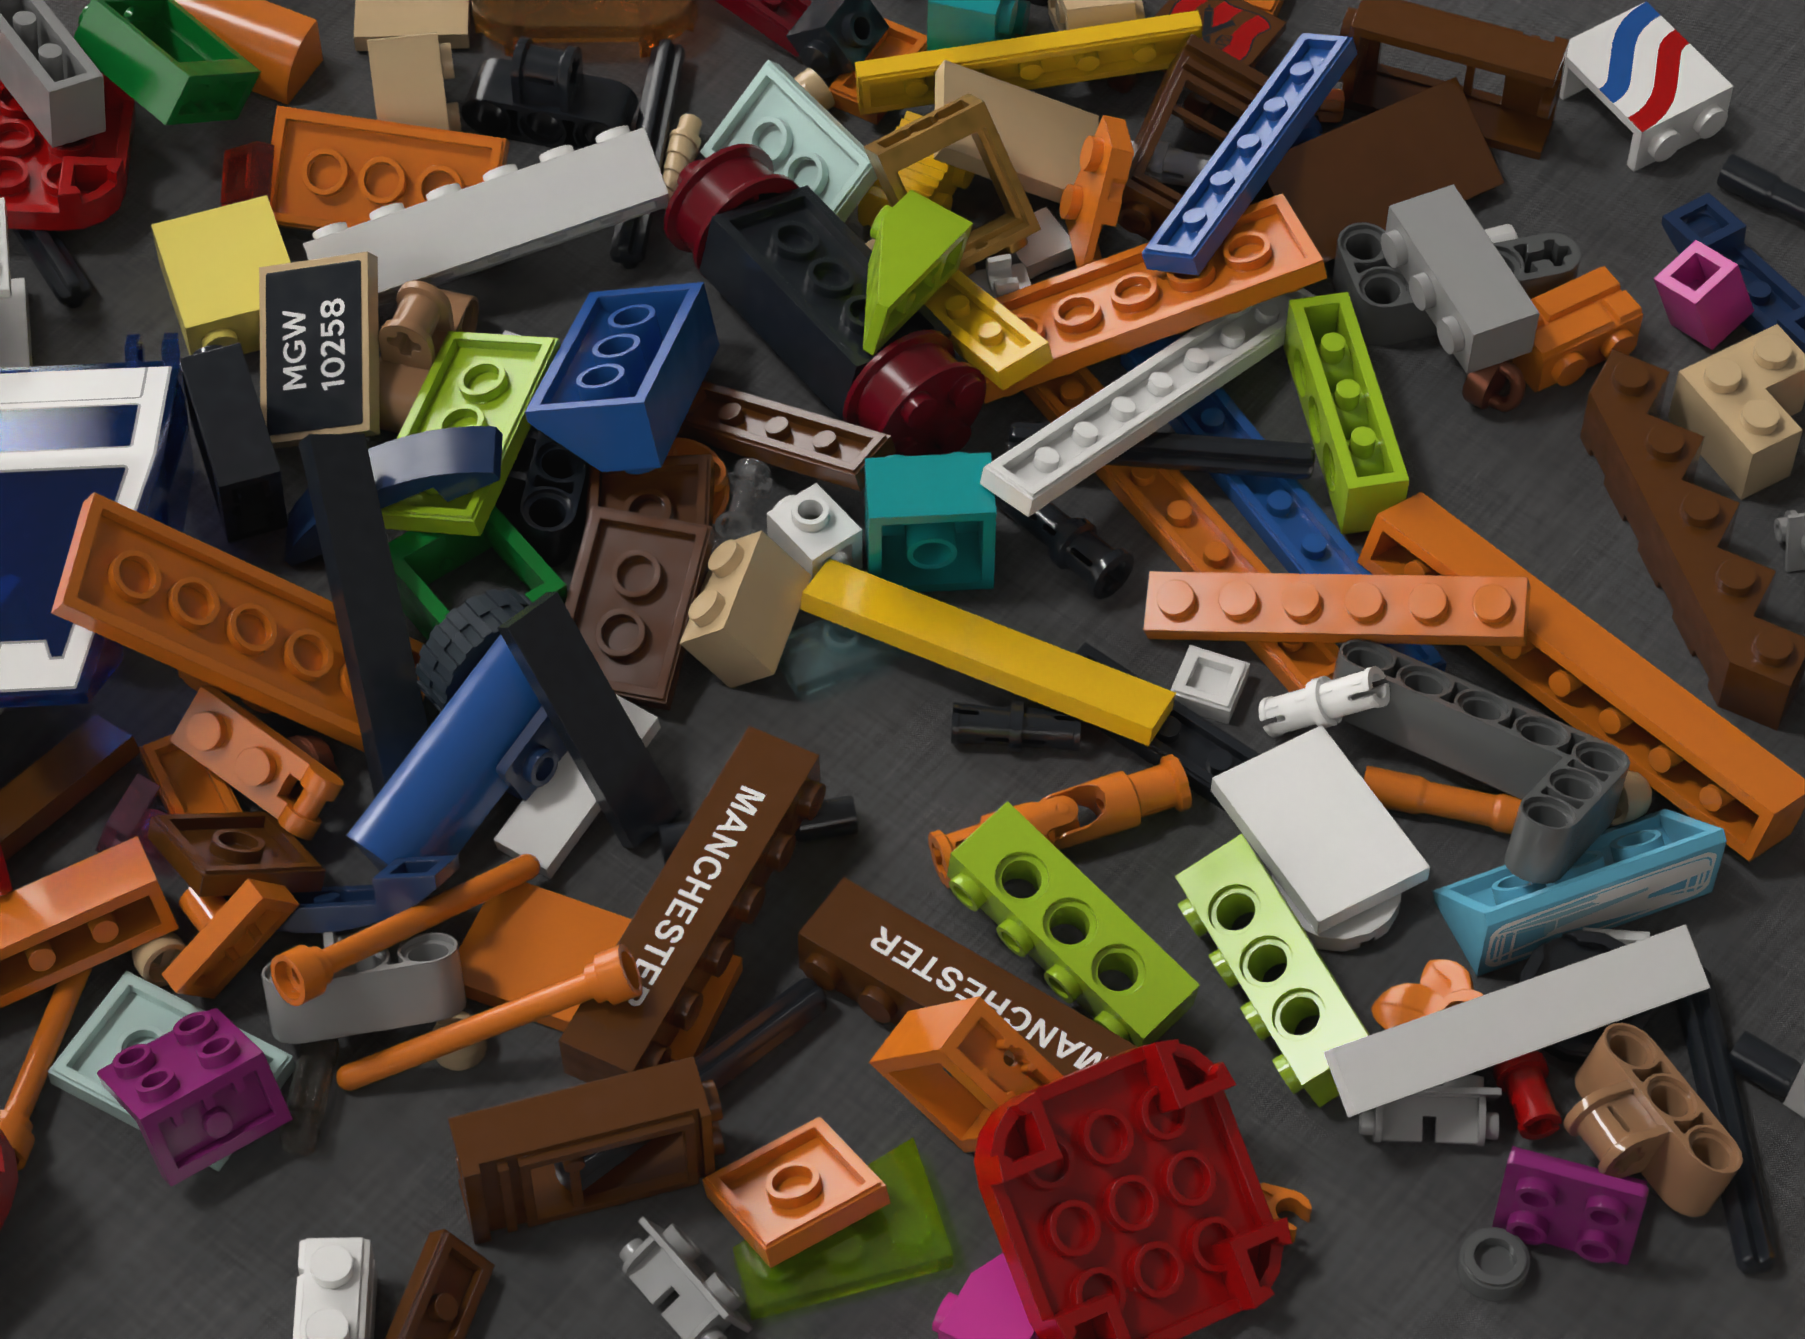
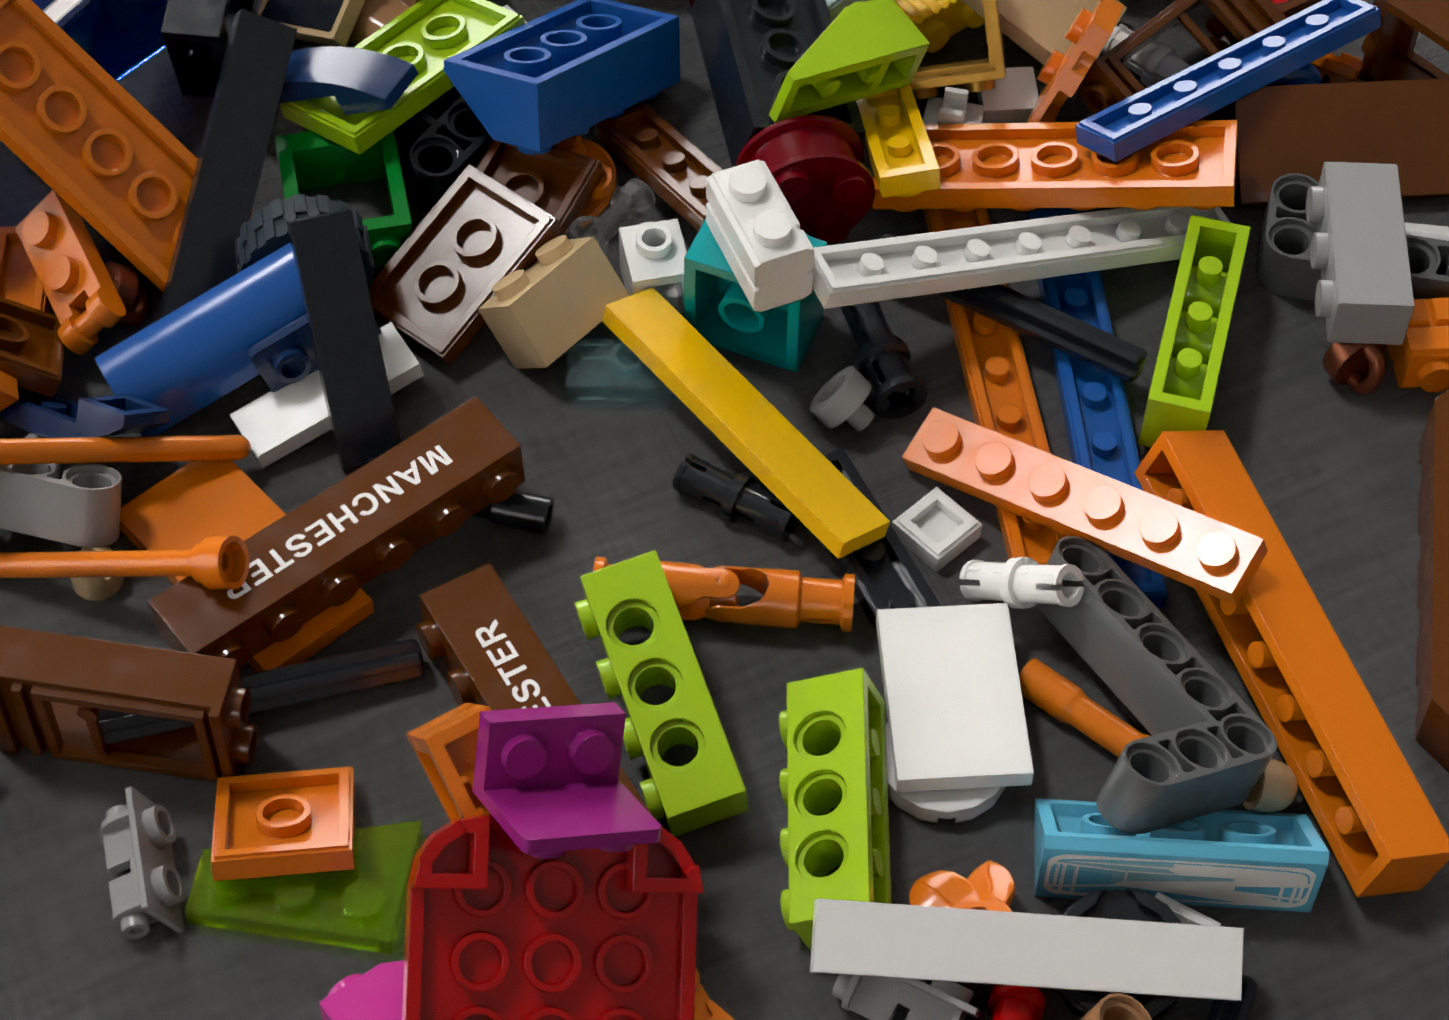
camera: 25 degrees right, 0 degrees up
(939, 470) = (759, 235): none -> white brick
(1061, 597) = (843, 400): none -> light grey tile
(1066, 1040) = (557, 781): none -> magenta bracket

